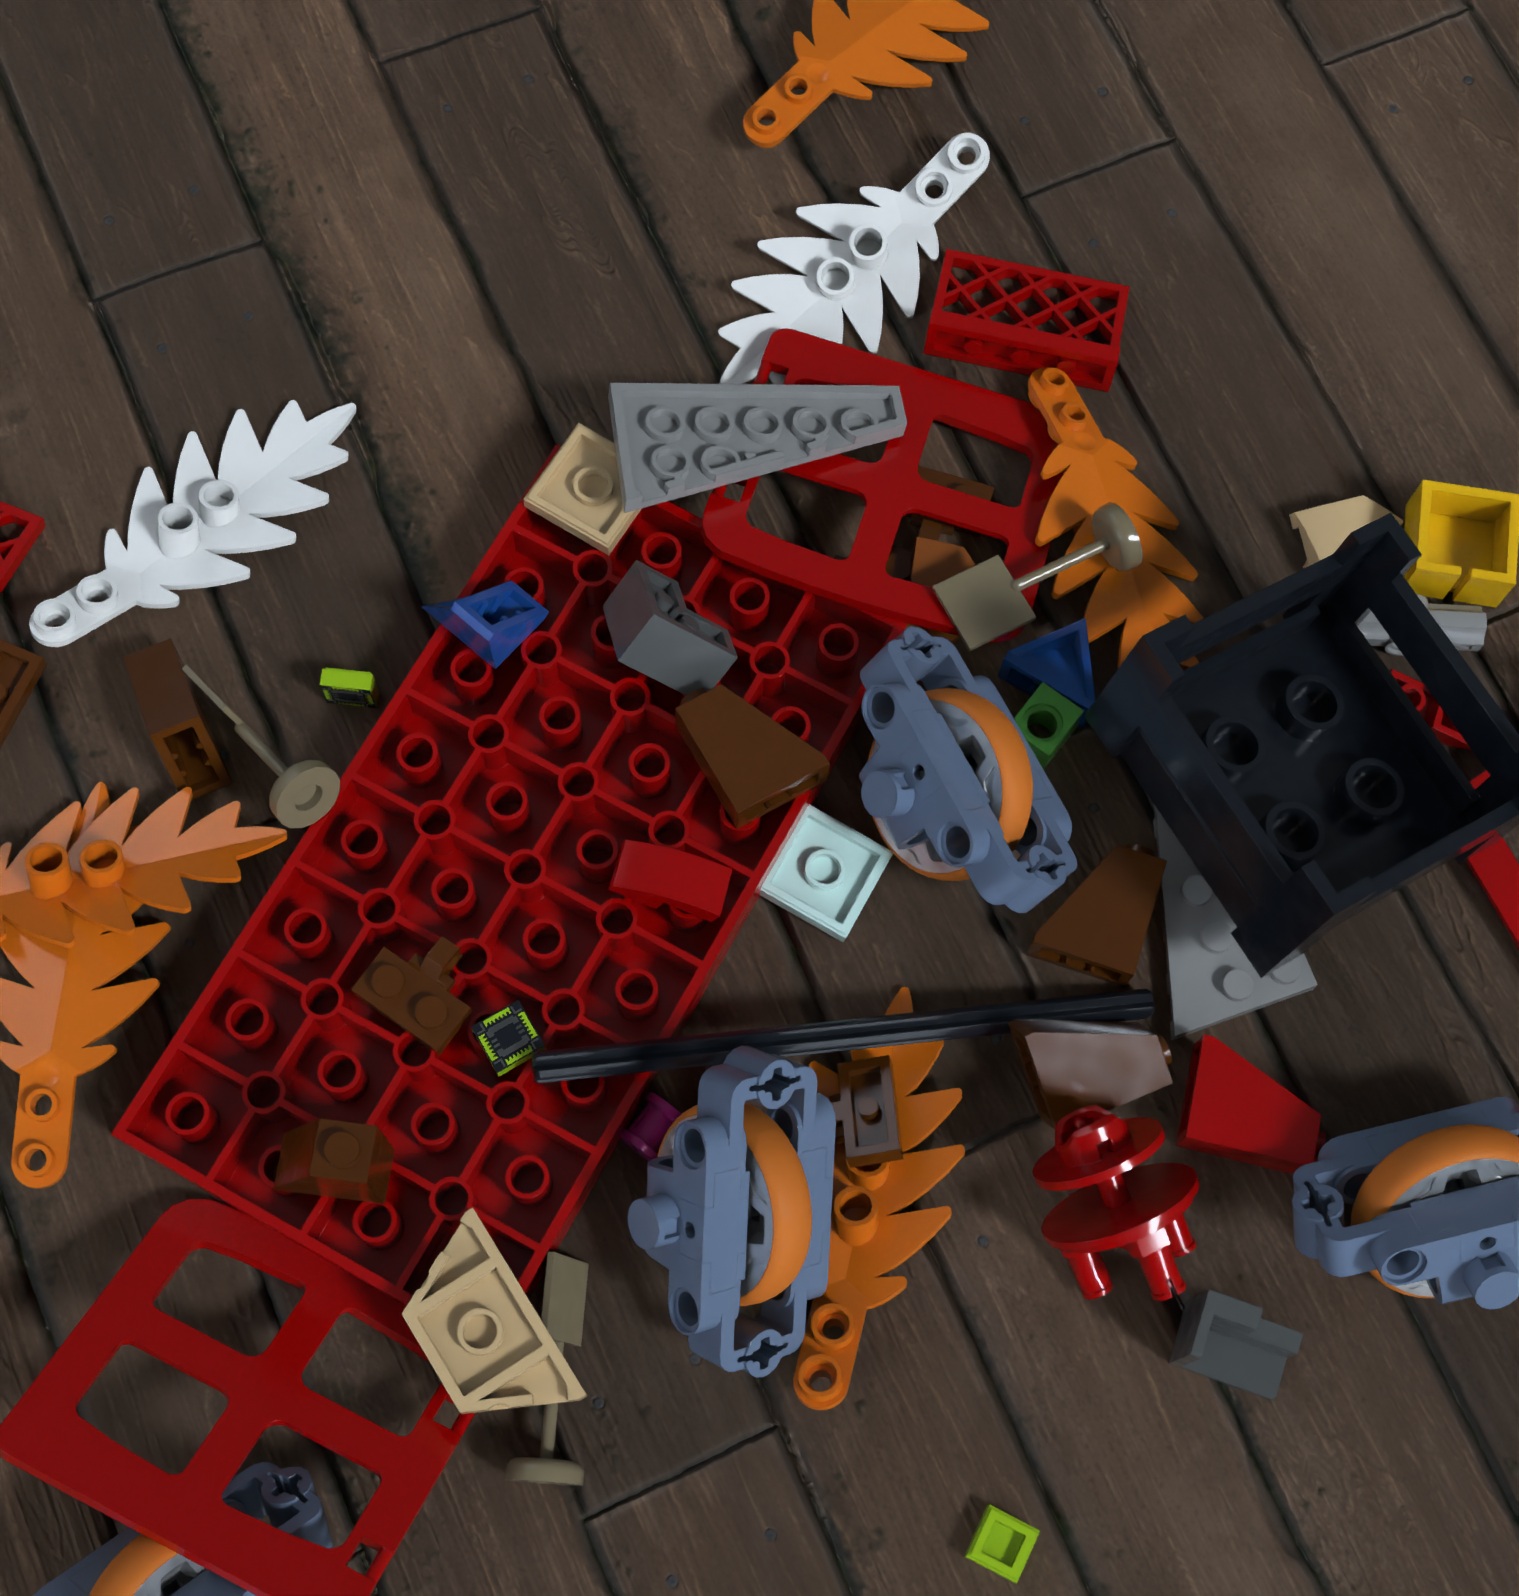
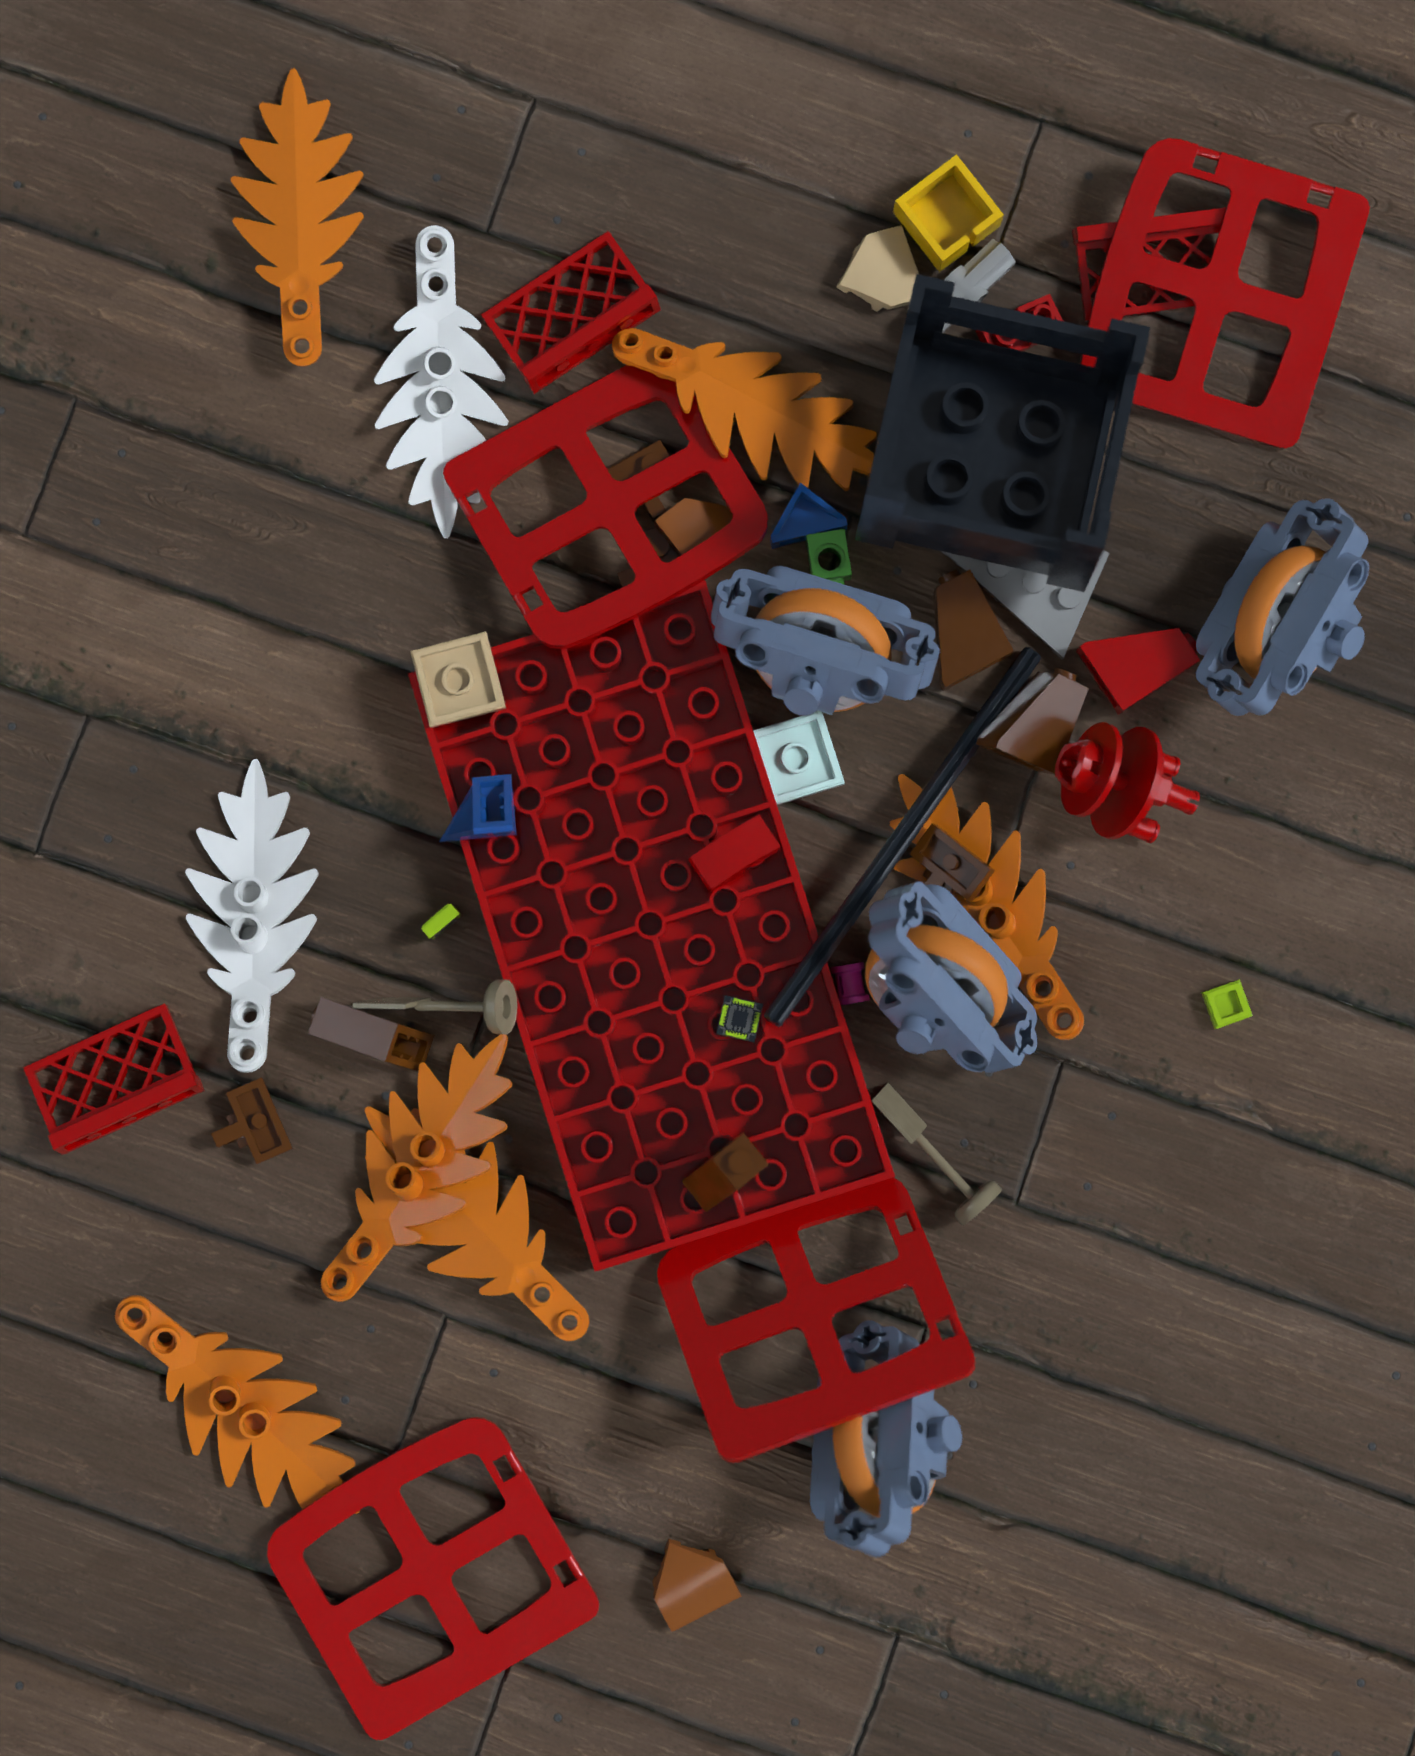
camera: 40 degrees left, 15 degrees up
(417, 993) = (669, 1045): reddish brown hinge -> none
(485, 1330) = (884, 1168): tan wing -> none
(662, 636) = (590, 728): dark grey panel -> none
(707, 436) = (492, 579): light grey wing -> none
(746, 754) = (700, 746): reddish brown slope -> none
(989, 602) = (735, 523): dark tan piece -> none
(1233, 1344) = (1246, 791): dark grey panel -> none

